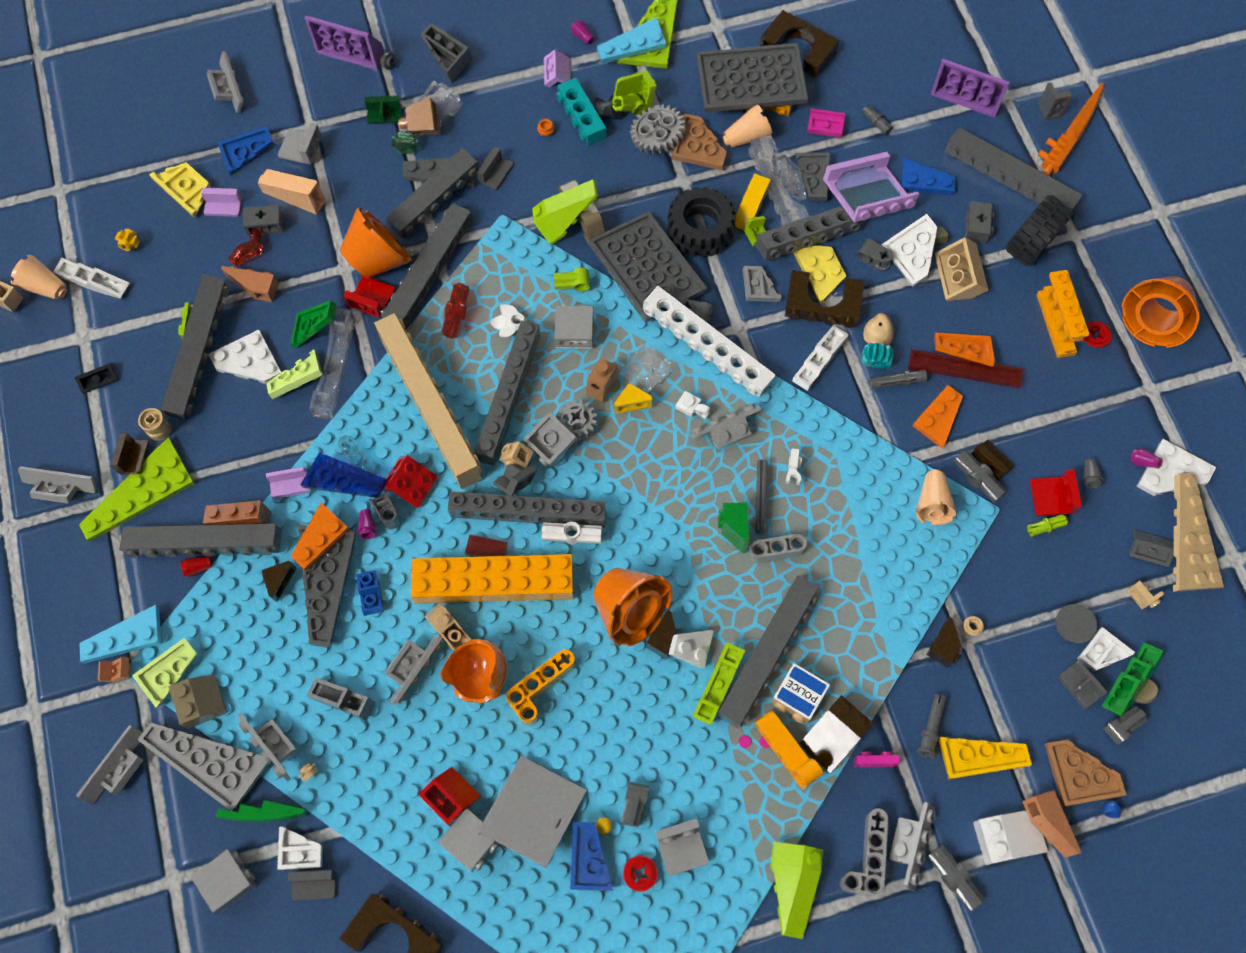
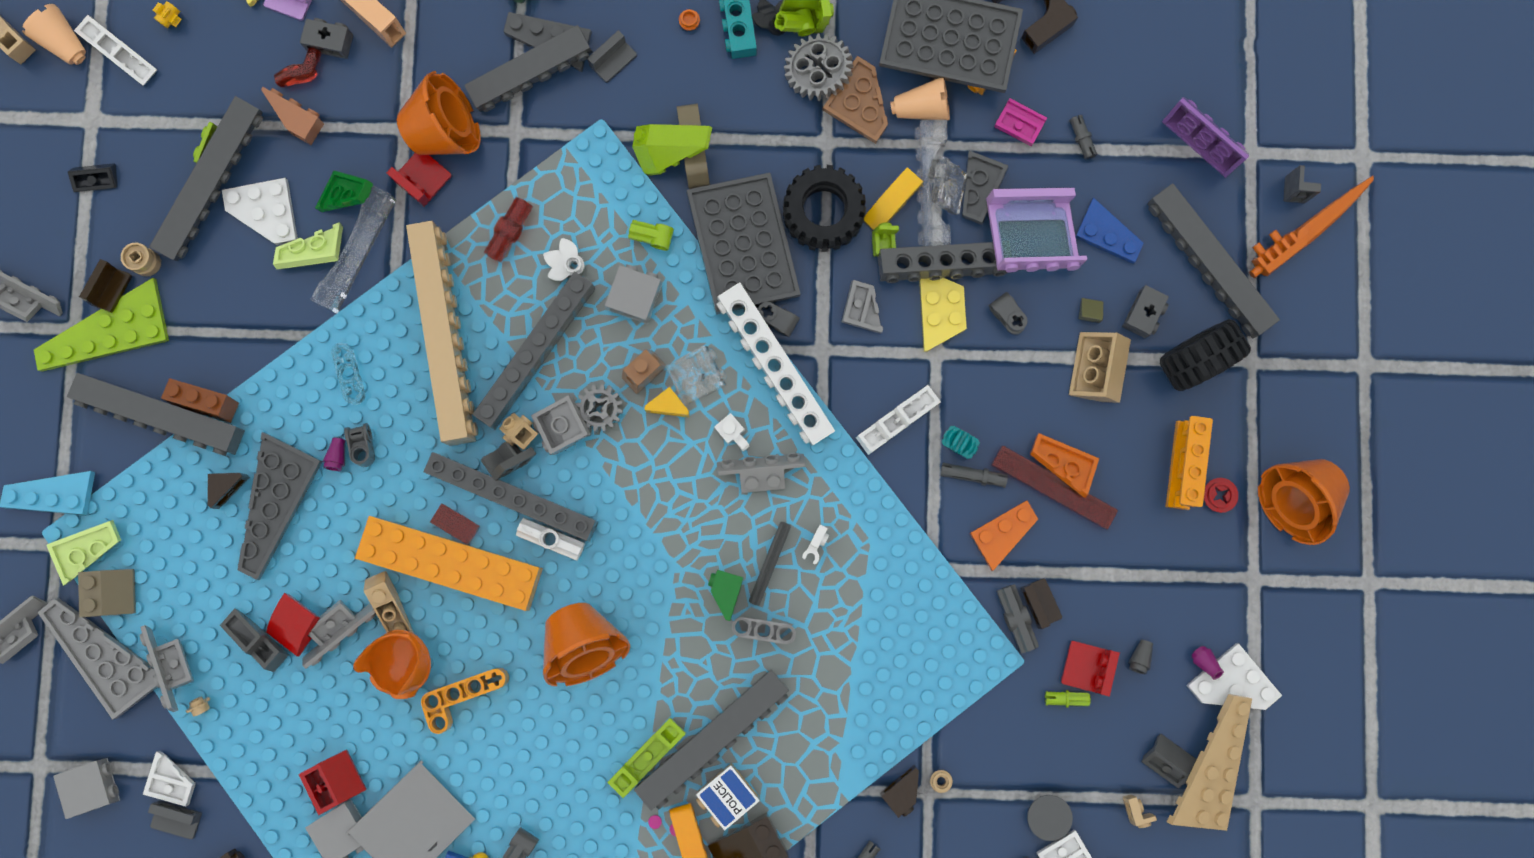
camera: 15 degrees right, 15 degrees up
(114, 671) = (31, 529): nougat bracket -> none
(193, 566) = (142, 438): red cone -> none
(267, 813) = (150, 733): green slope -> none
(287, 482) = (267, 380): lavender panel -> none
(318, 537) = (279, 454): orange wing -> none
(340, 477) = (317, 390): clear blue wing -> none
(369, 593) = (317, 532): blue slope -> none
(371, 673) = (291, 624): none -> red slope
(410, 480) = (395, 420): red bracket -> none
(428, 264) = (495, 161): dark grey brick -> none
(662, 637) = (608, 688): dark brown slope -> none
(692, 647) = (633, 709): white wing -> none
(802, 307) = (947, 375): dark brown arch -> none
(879, 334) = (971, 415): tan hair -> none
(914, 249) = (1055, 322): white plate -> none
(935, 500) = (955, 632): light nougat cone -> none

